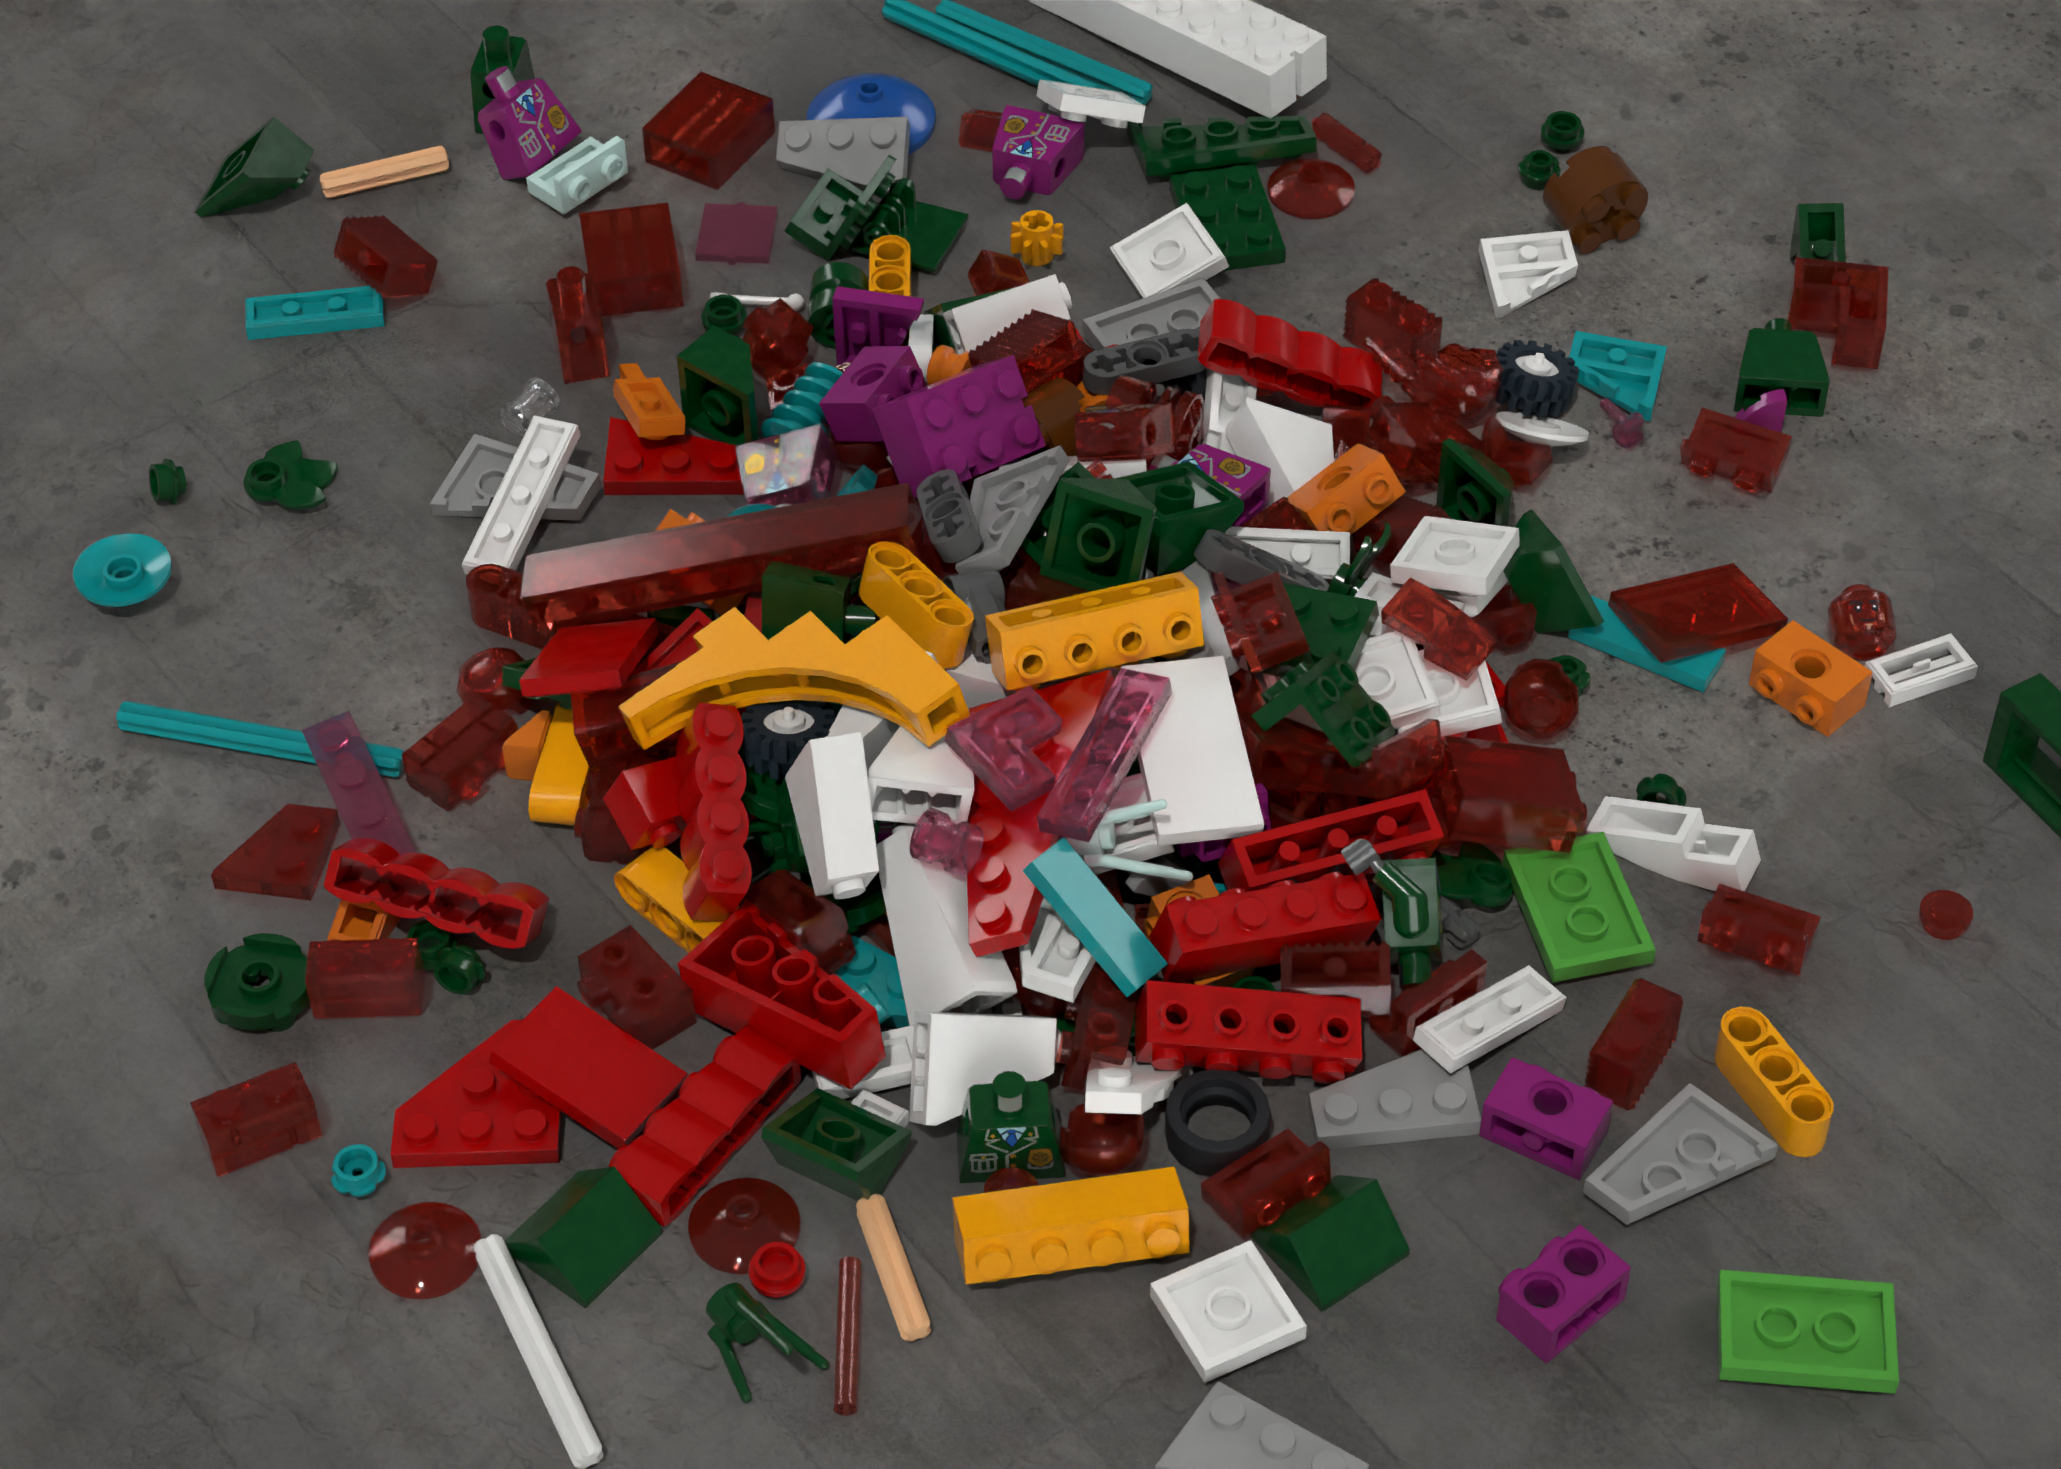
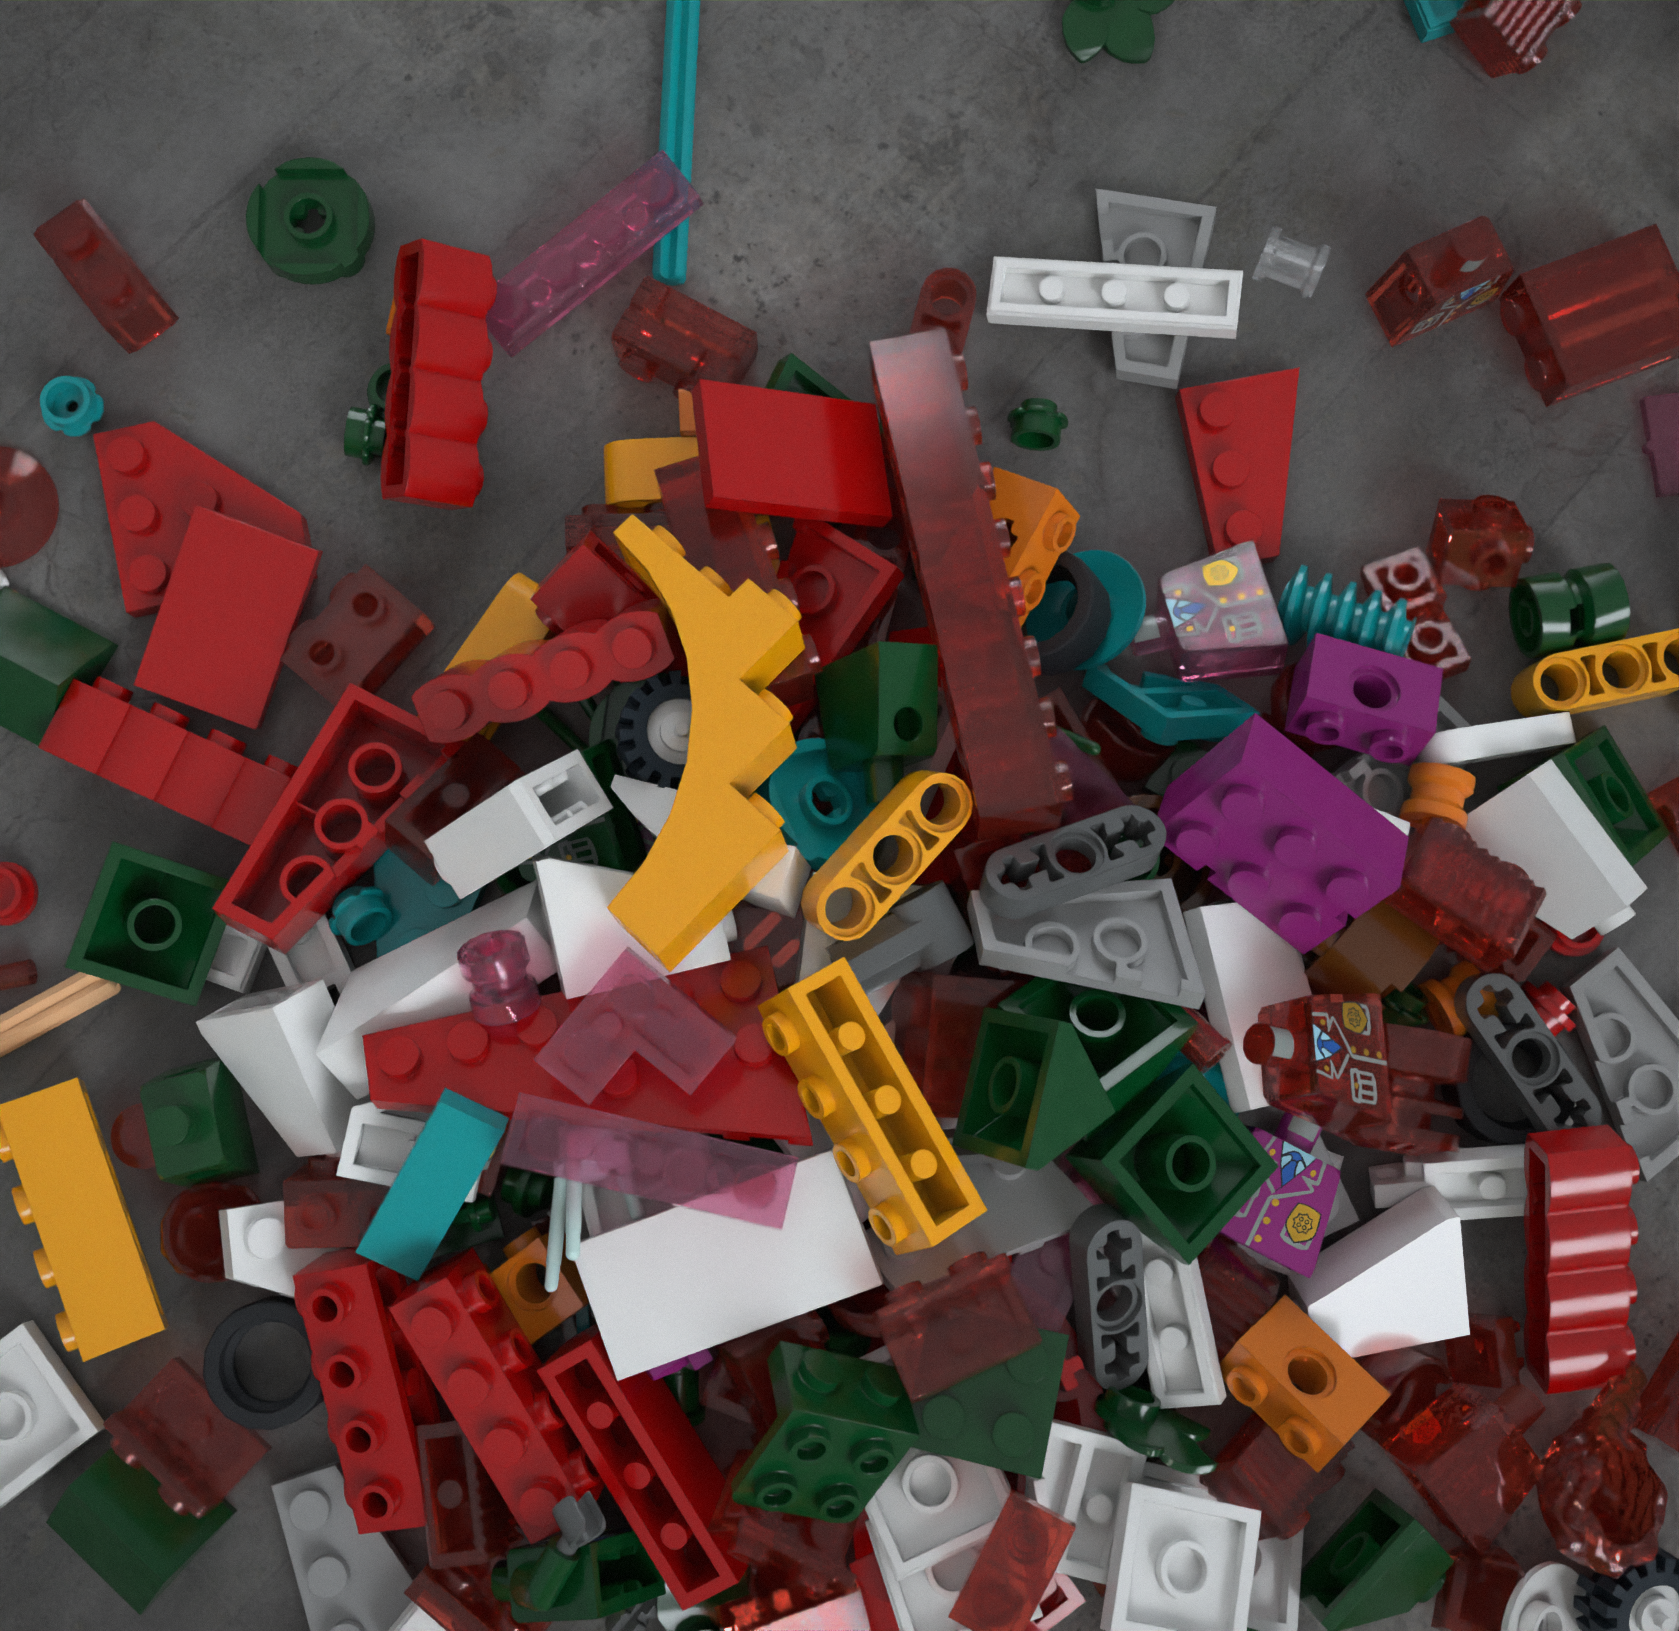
camera: 75 degrees right, 35 degrees up
(282, 855) = (509, 189): clear red wing -> none
(365, 978) = (320, 333): clear red brick -> none
(483, 677) = (821, 341): clear red hair -> none
(647, 404) = (1317, 407): orange hinge -> none
(718, 388) = (1353, 499): dark green slope -> none
(725, 313) = (1537, 453): dark green plate -> none
(730, 1240) = (94, 815): clear red dish -> none
(794, 300) = (1579, 549): white hinge -> none
(870, 319) = (1512, 666): magenta wing -> none

